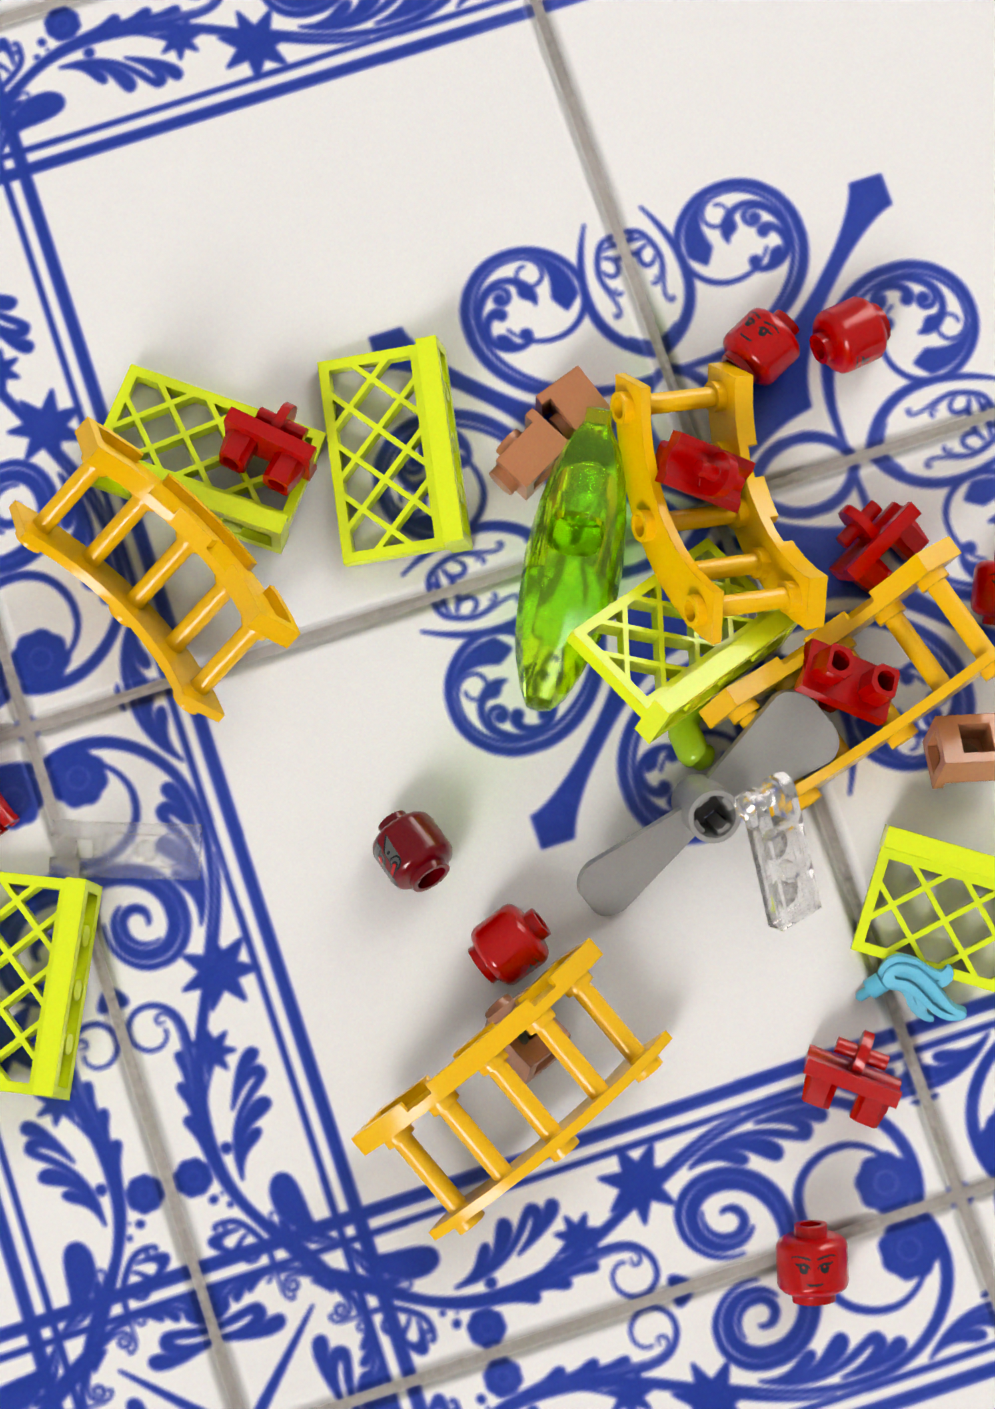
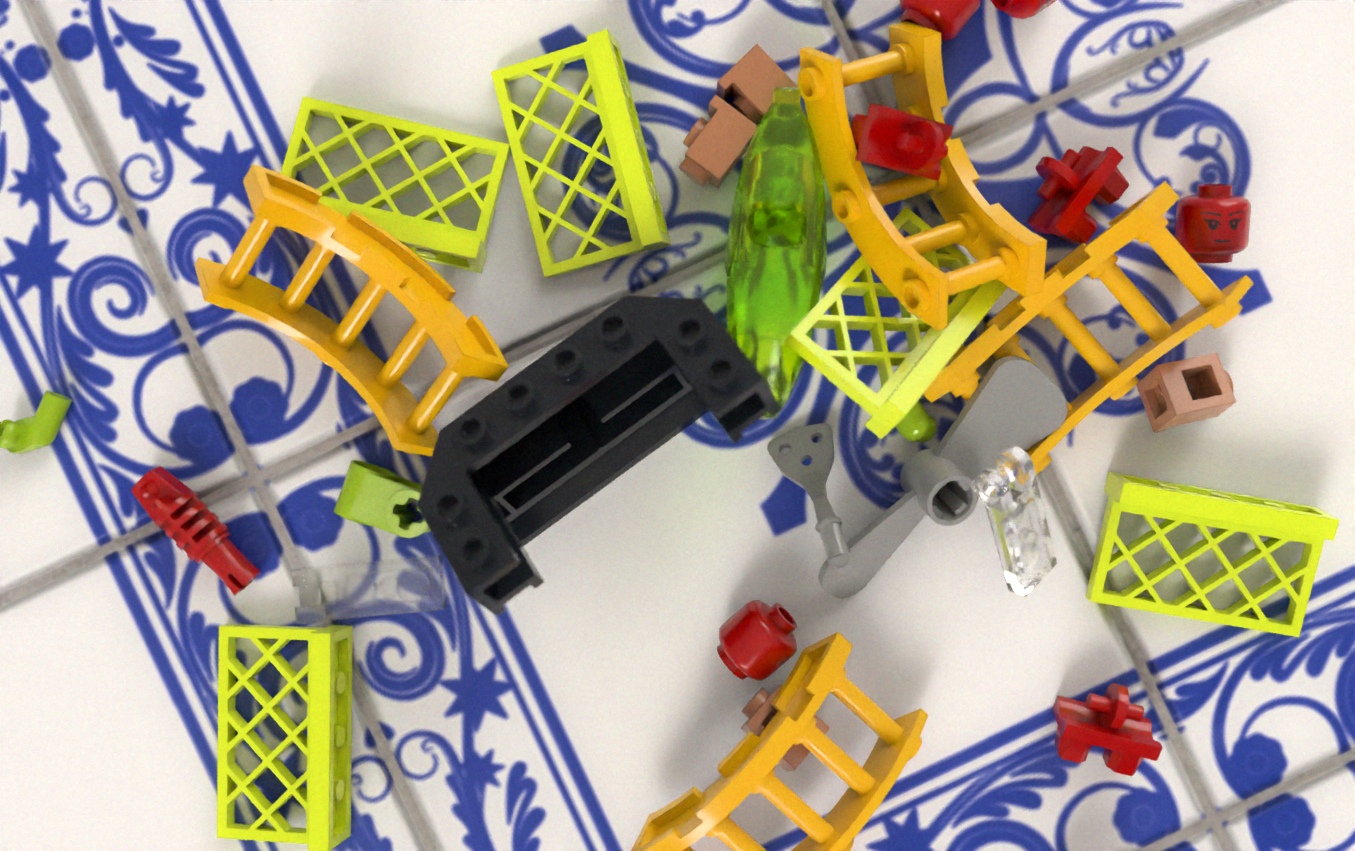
camera: 10 degrees left, 10 degrees up
(153, 759) = (380, 500): none -> lime piece
(273, 439) = (455, 158): red hips -> none
(365, 702) = (575, 428): none -> black wedge
(412, 850) = (650, 559): dark red head -> none
(584, 791) = (813, 480): none -> light grey piece
(847, 682) = (1070, 343): red hips -> none
(919, 985) = (1159, 627): medium azure piece -> none

